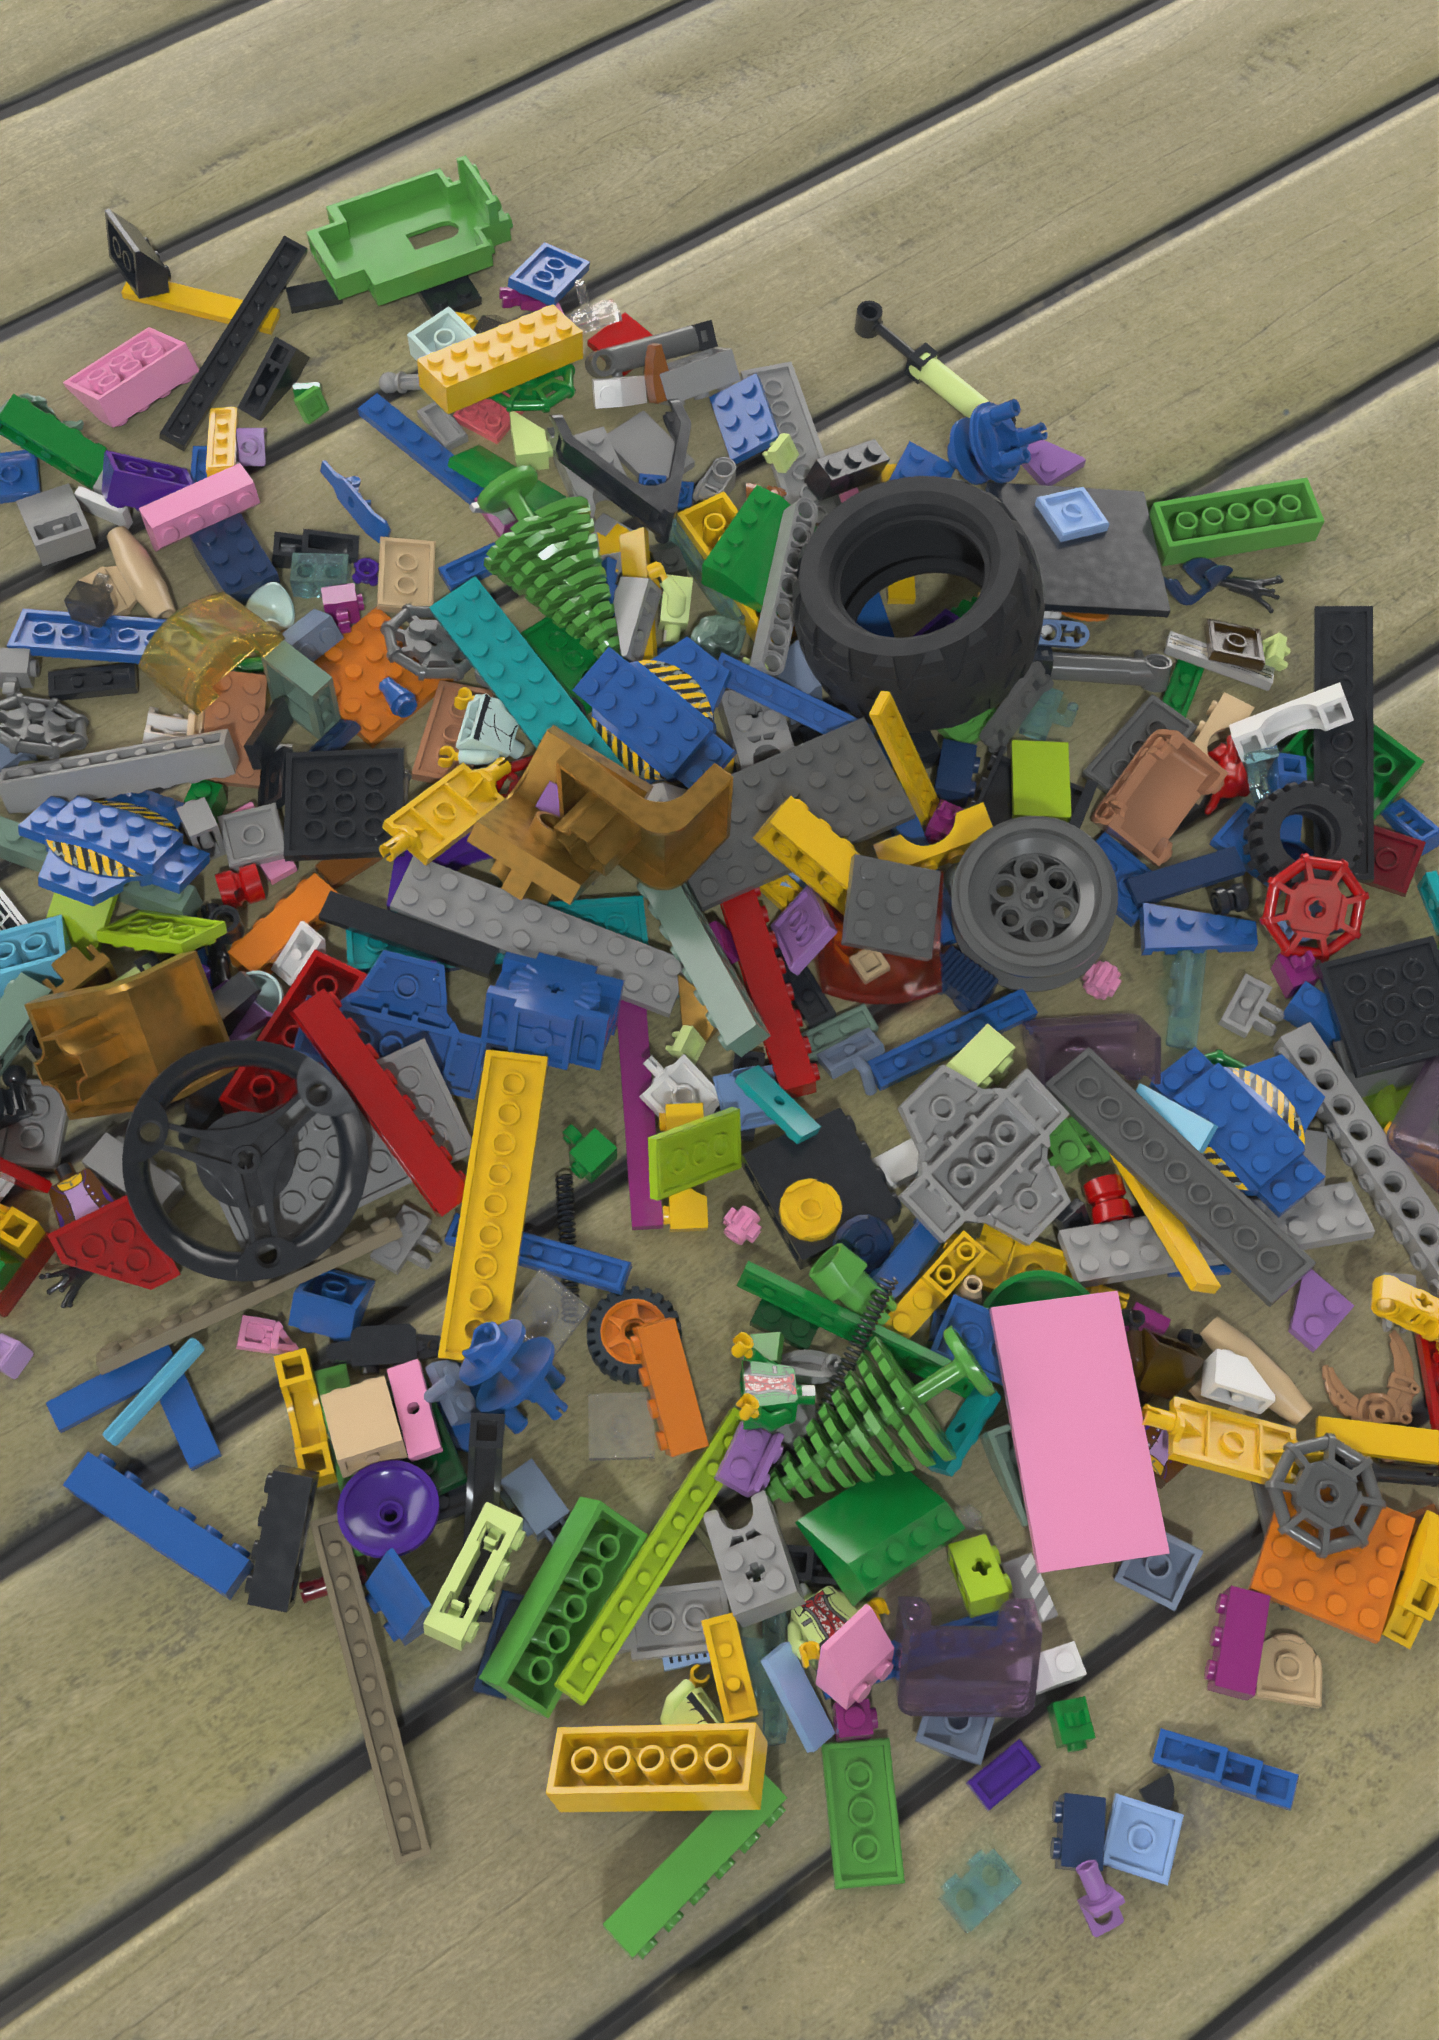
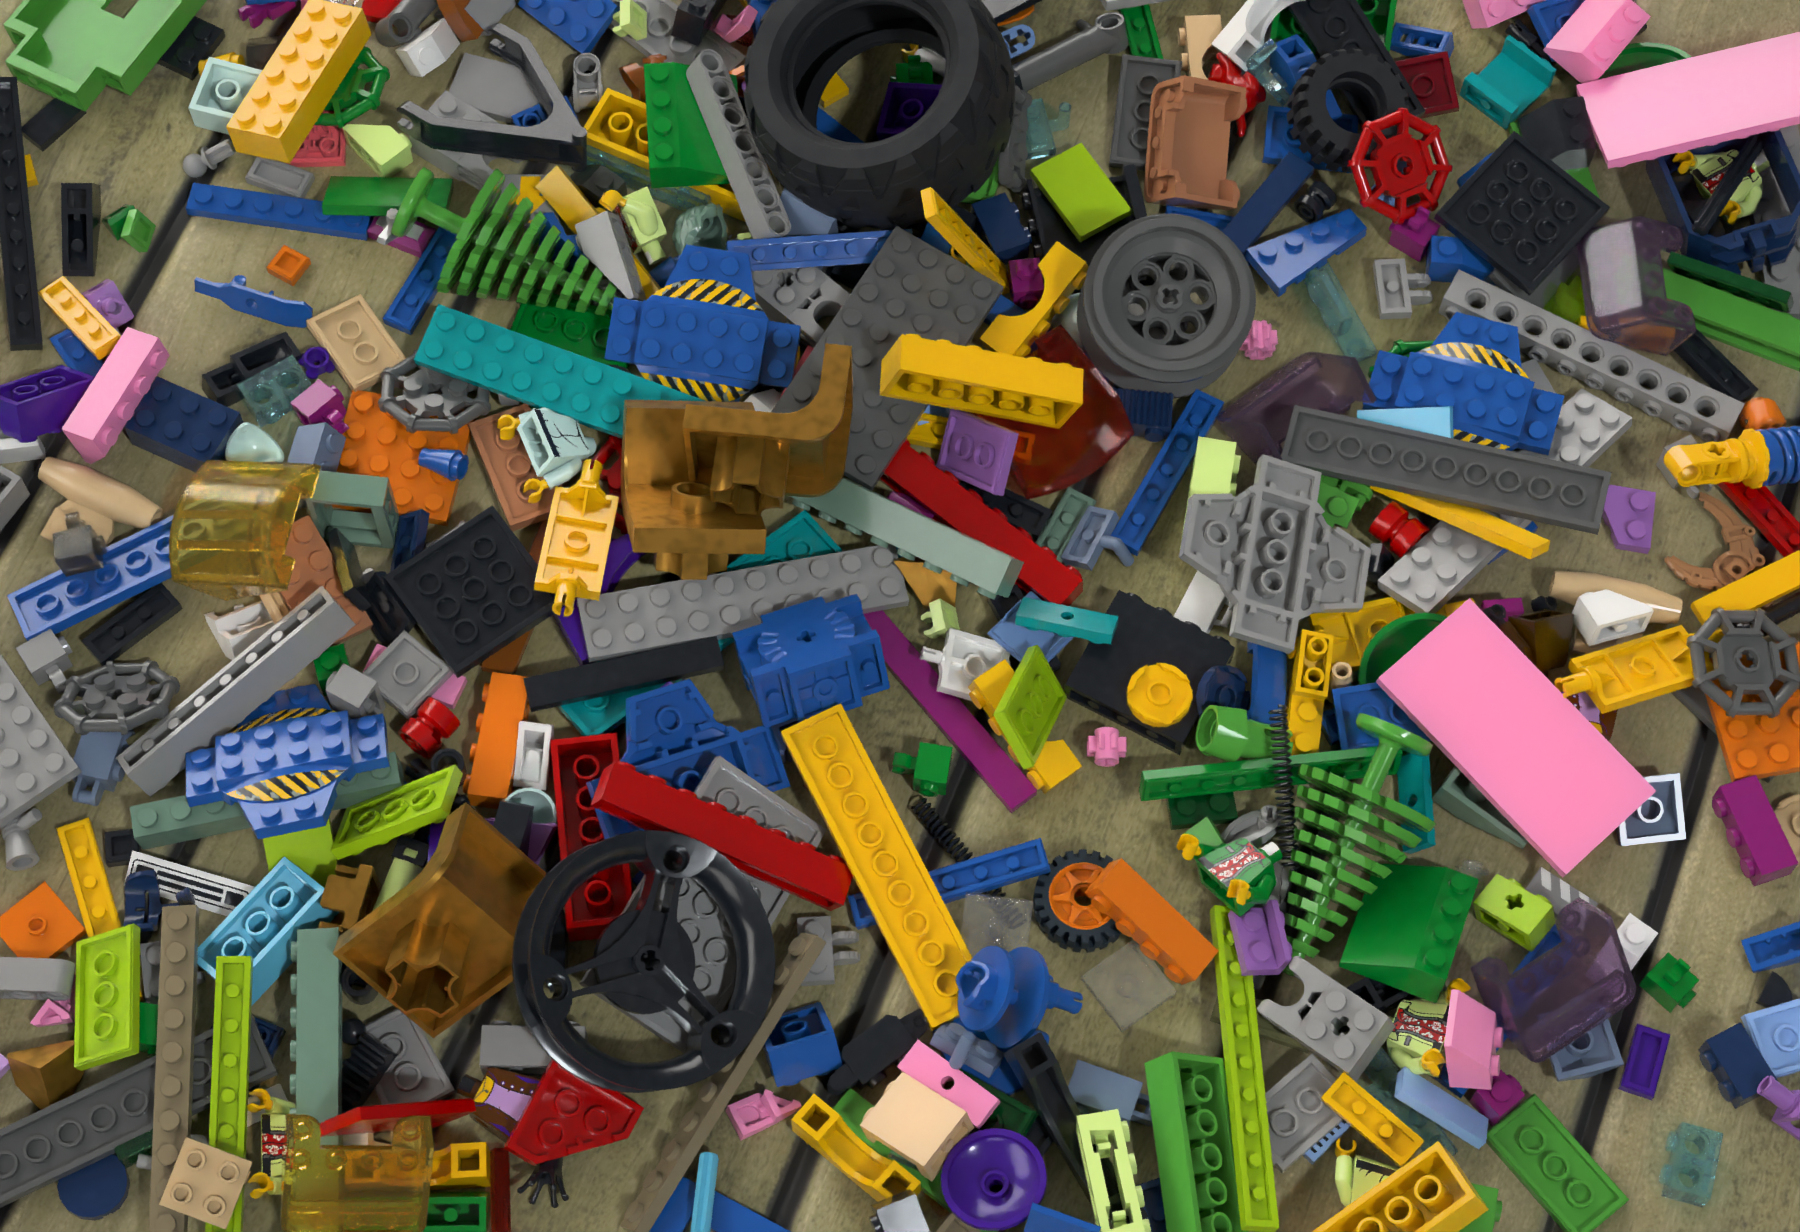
camera: 30 degrees left, 0 degrees up
(401, 491) = (288, 265): none -> orange tile
(549, 799) = (671, 468): medium lavender tile -> none
(869, 965) = (1051, 447): tan tile -> none
(891, 908) = (1051, 383): dark grey plate -> none

